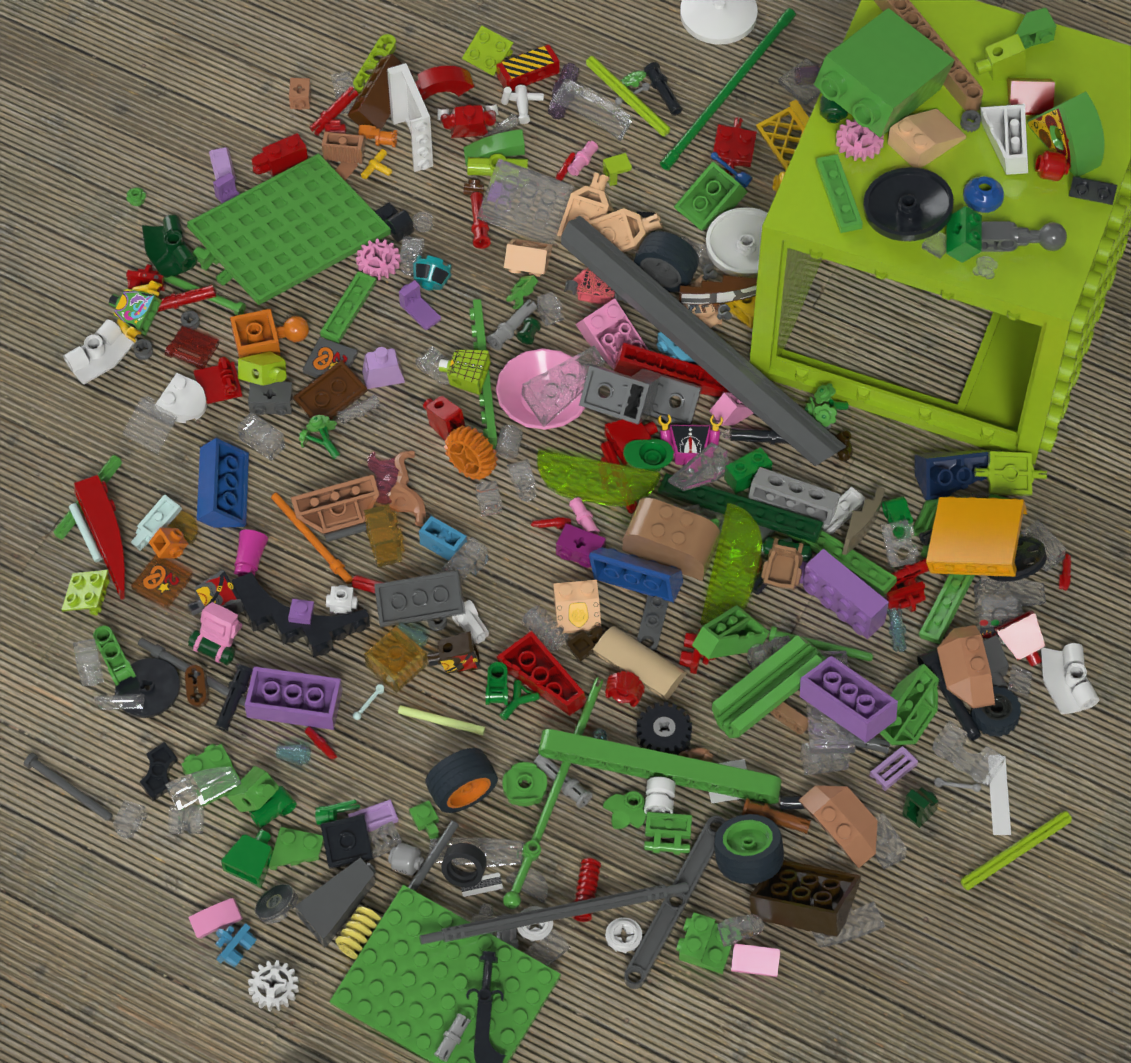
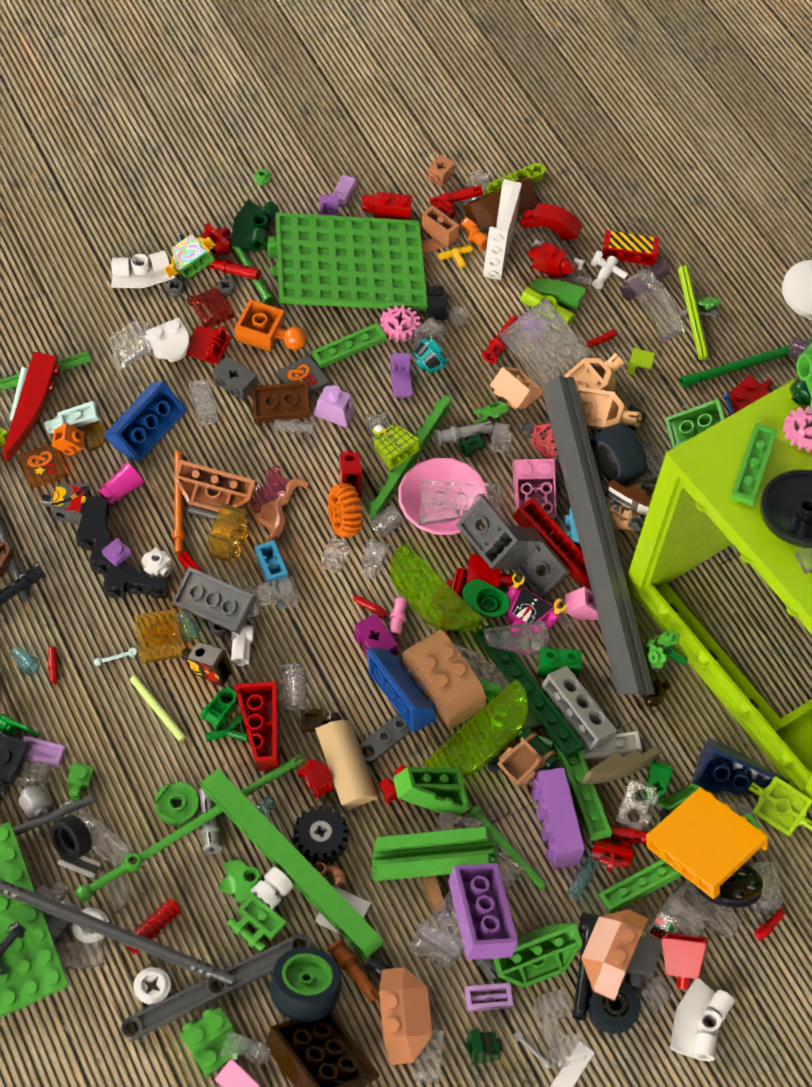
camera: 30 degrees right, 0 degrees up
(216, 634) = (44, 530): bright pink piece -> none
(269, 368) = (245, 351): lime torso -> none
(293, 698) = (58, 616): medium lavender brick -> none
(320, 424) = (249, 418): plant -> none
(461, 780) = (122, 766): black wheel -> none
(472, 186) = (516, 311): reddish brown plate -> none
(487, 50) = (609, 217): lime hinge -> none
(577, 606) = (334, 685): light nougat slope -> none
(582, 158) = (620, 339): bright pink pin -> none
(659, 82) = (727, 316): black pin -> none
(756, 435) = (587, 638): black pin -> none

